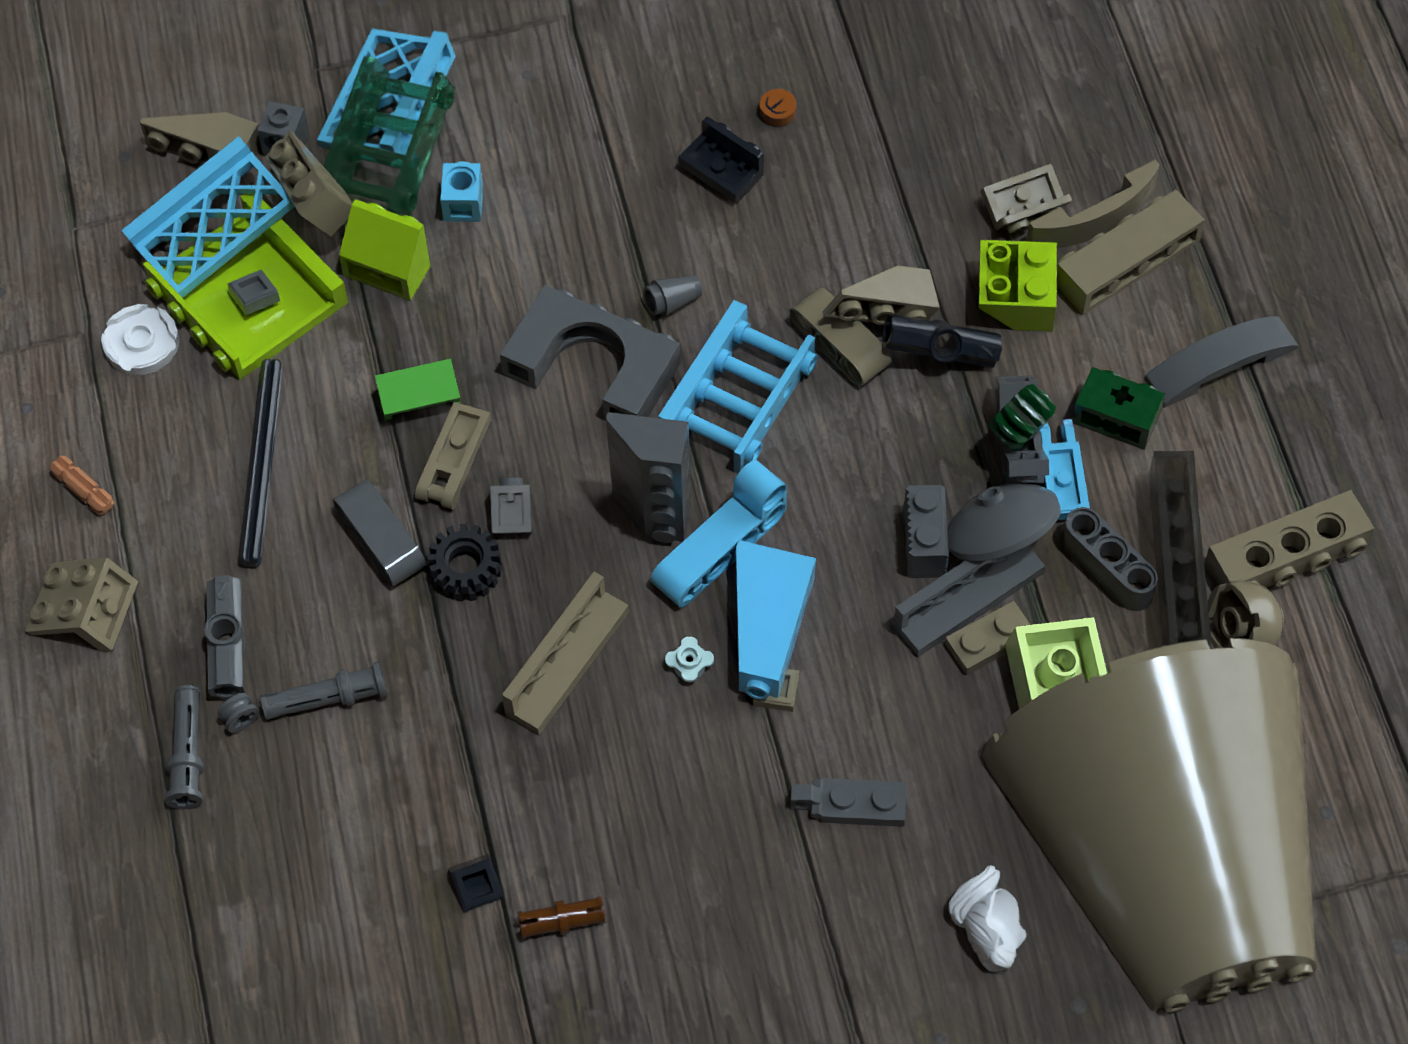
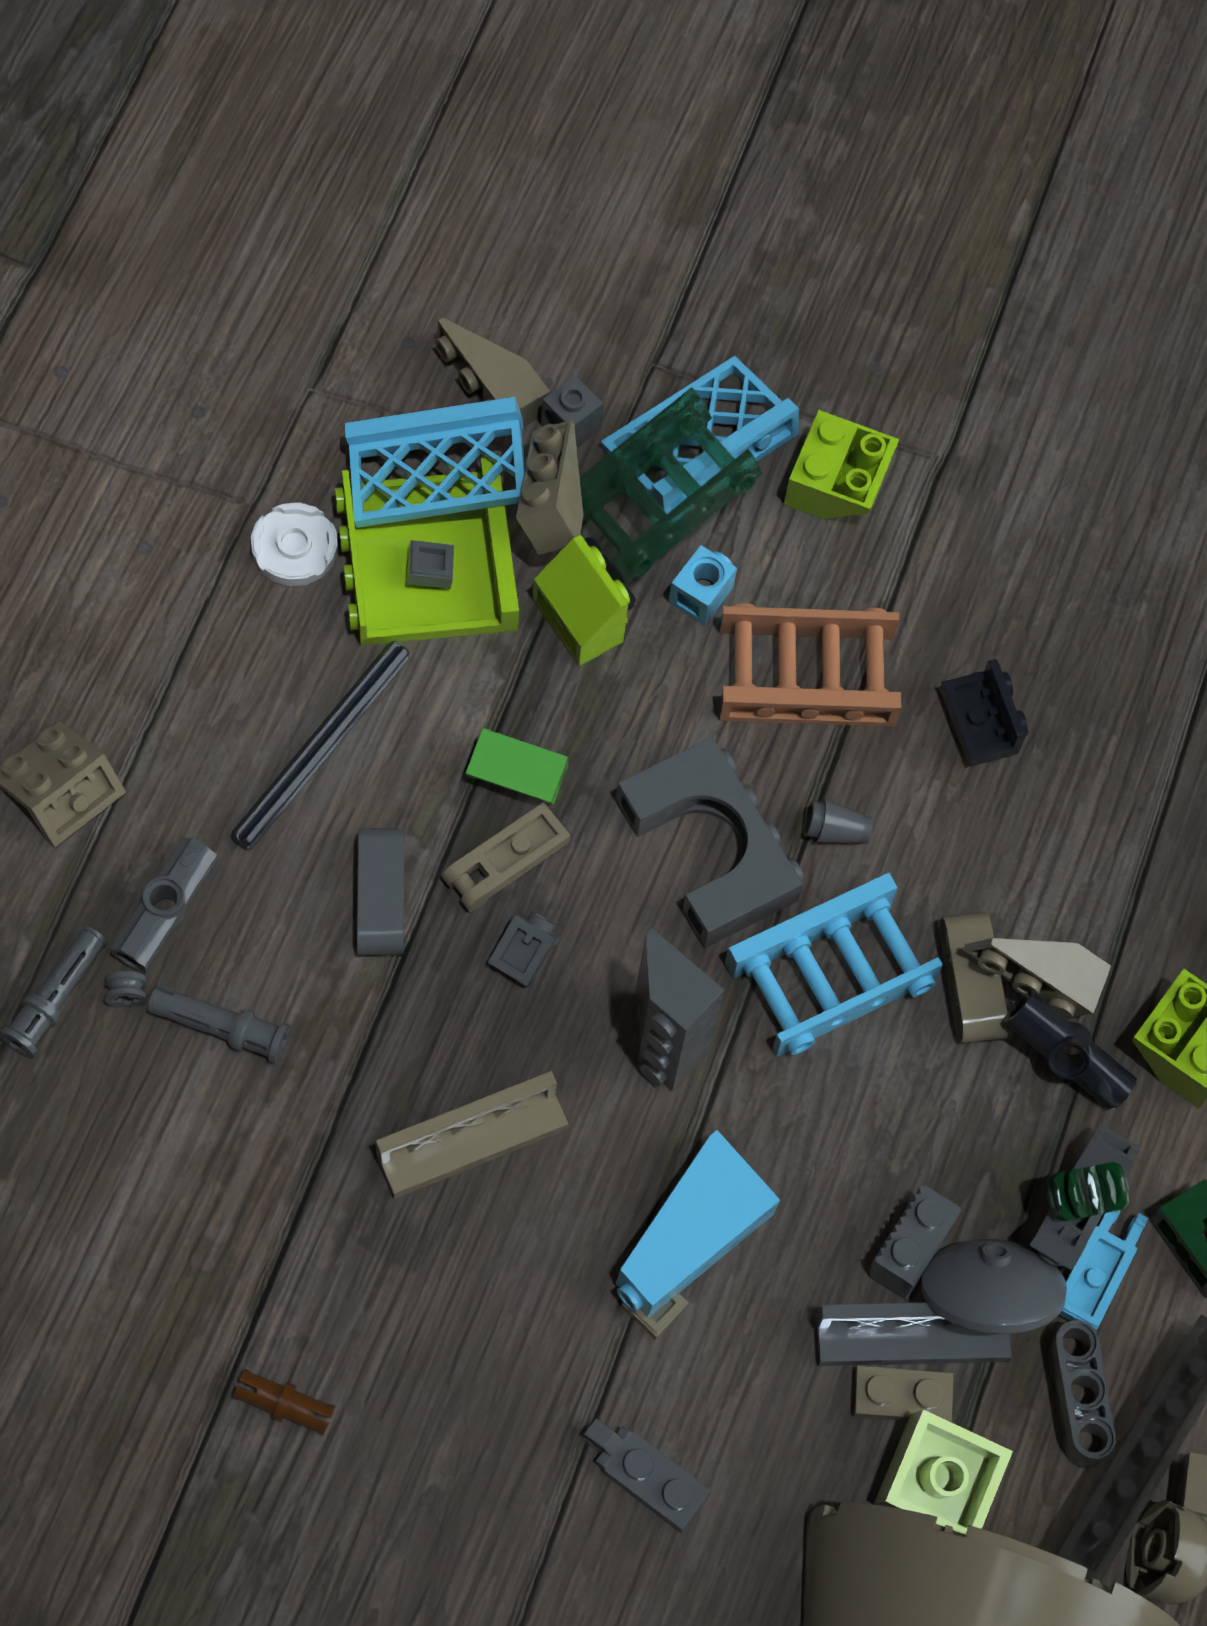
camera: 25 degrees right, 5 degrees up
(81, 485) = (139, 660): nougat axle -> none
(462, 542) = (441, 949): black tyre -> none
(476, 882) = (230, 1309): black slope -> none
(504, 58) = (839, 468): none -> lime slope
(590, 230) = (809, 706): none -> nougat fence
(689, 670) = (583, 1232): light aqua plate -> none
(711, 549) = (686, 1119): medium azure beam -> none
(777, 107) = (1083, 689): dark orange tile -> none

